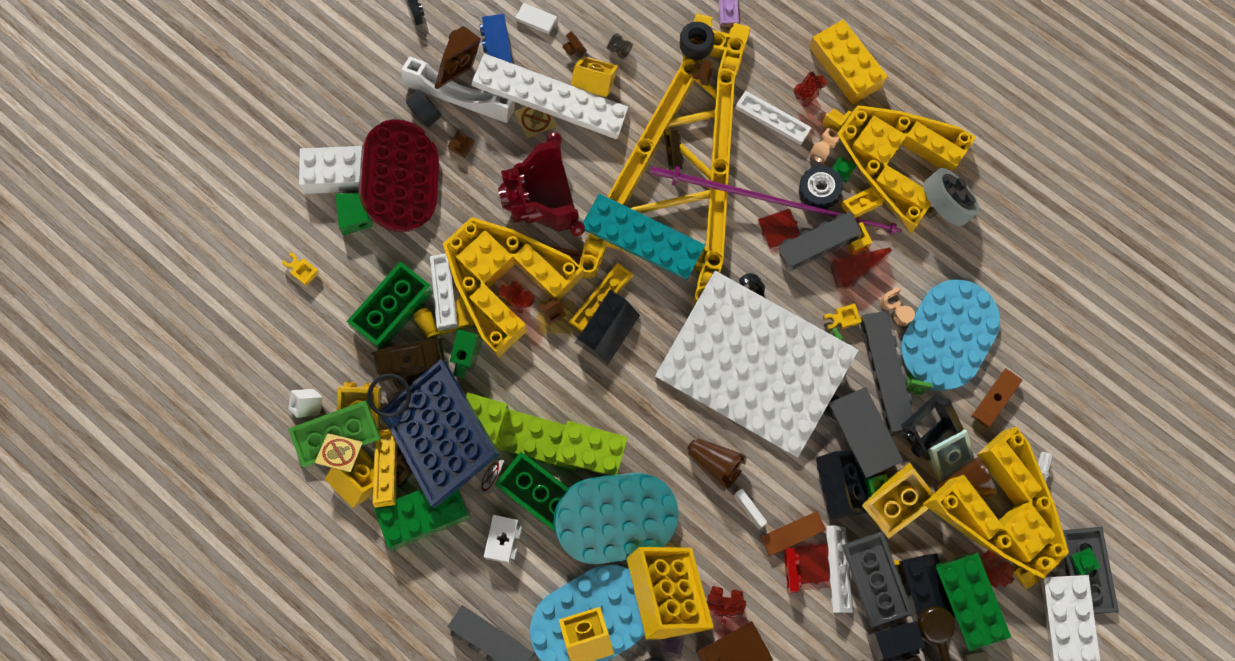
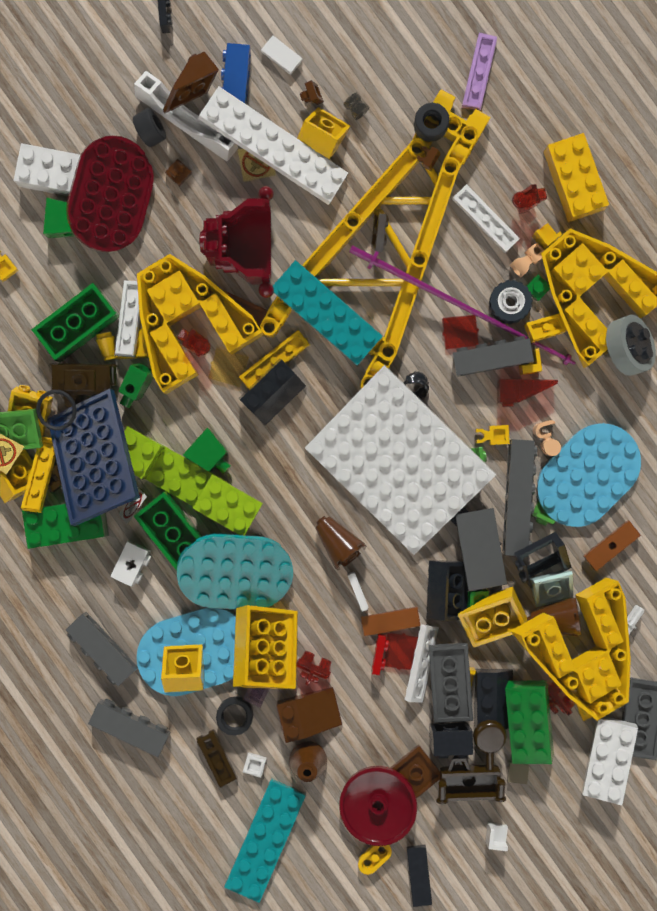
camera: 15 degrees right, 15 degrees up
(552, 311) = (225, 363): reddish brown tile -> none
(556, 404) = (208, 452): none -> green torso
(1084, 561) = (640, 711): green plate -> none

